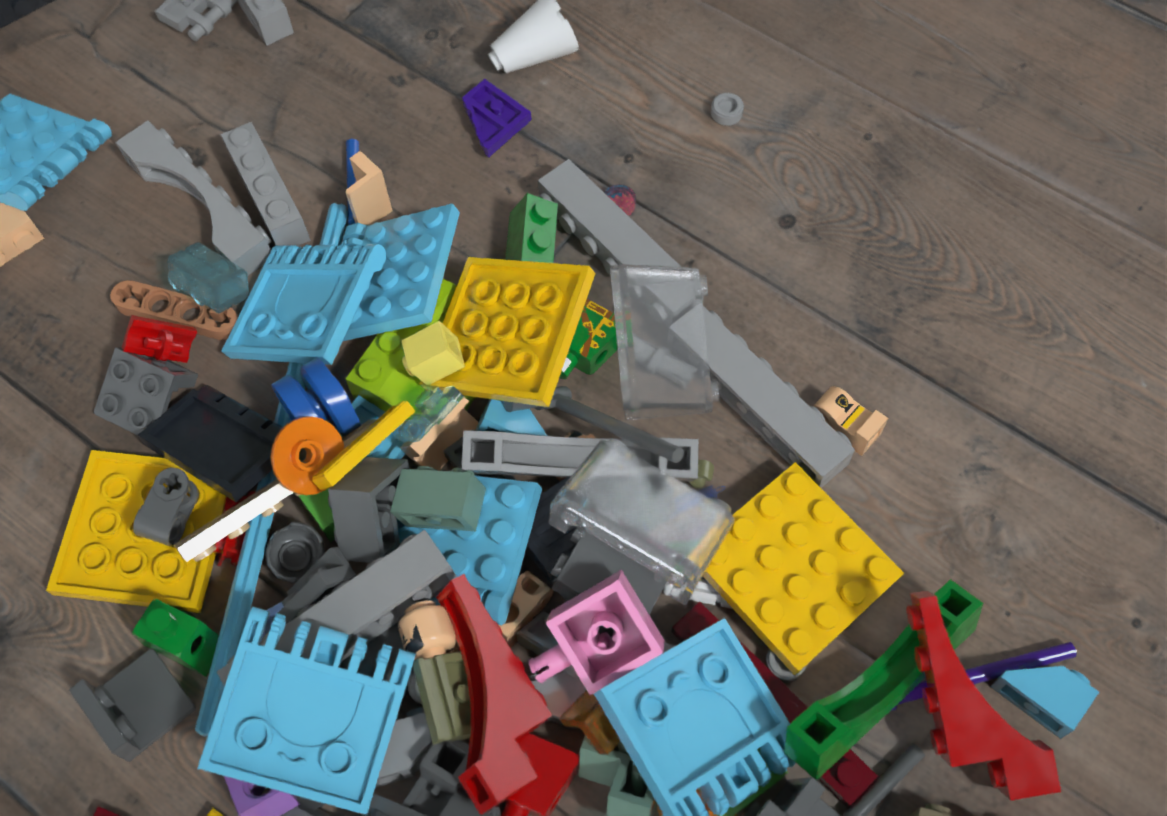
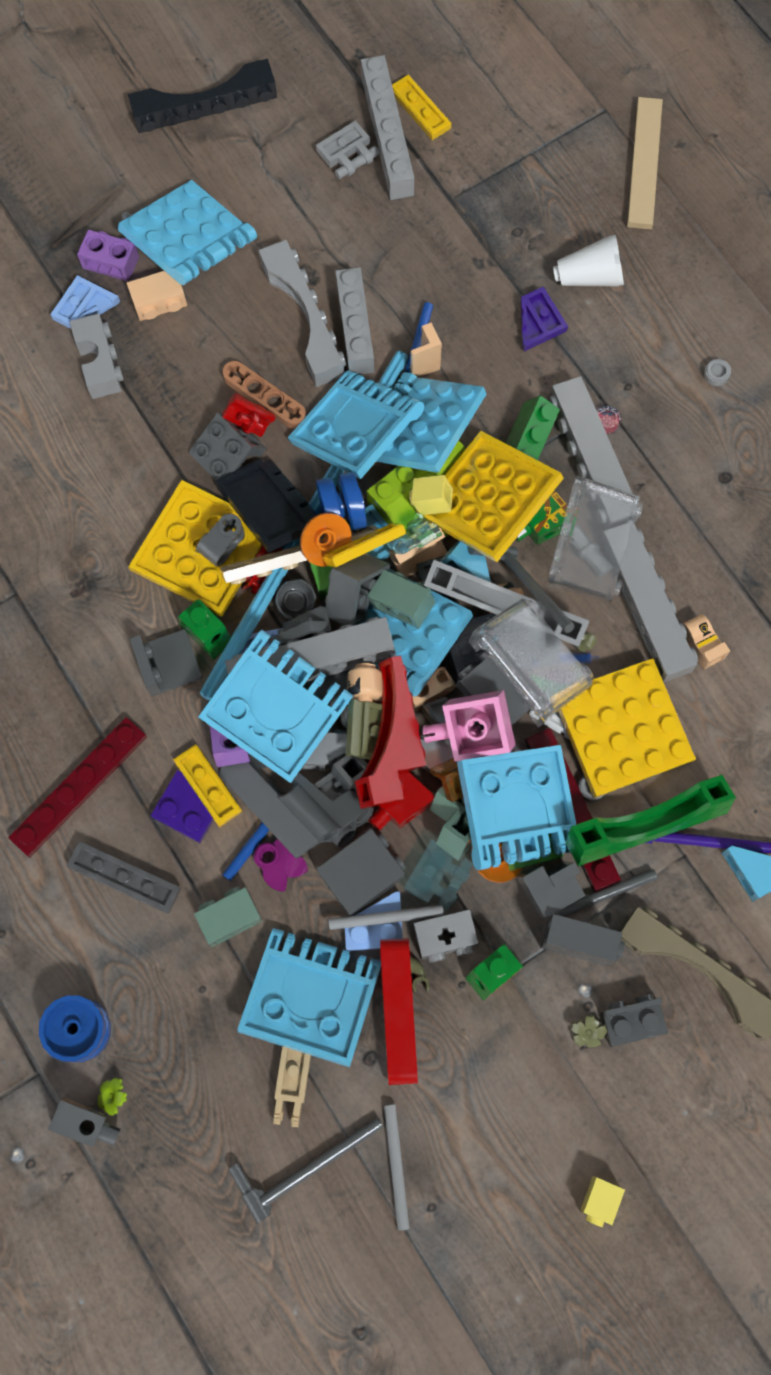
camera: 20 degrees right, 10 degrees up
(208, 277) = (294, 380): clear light blue brick -> none
(965, 722) = (691, 868): red arch -> none

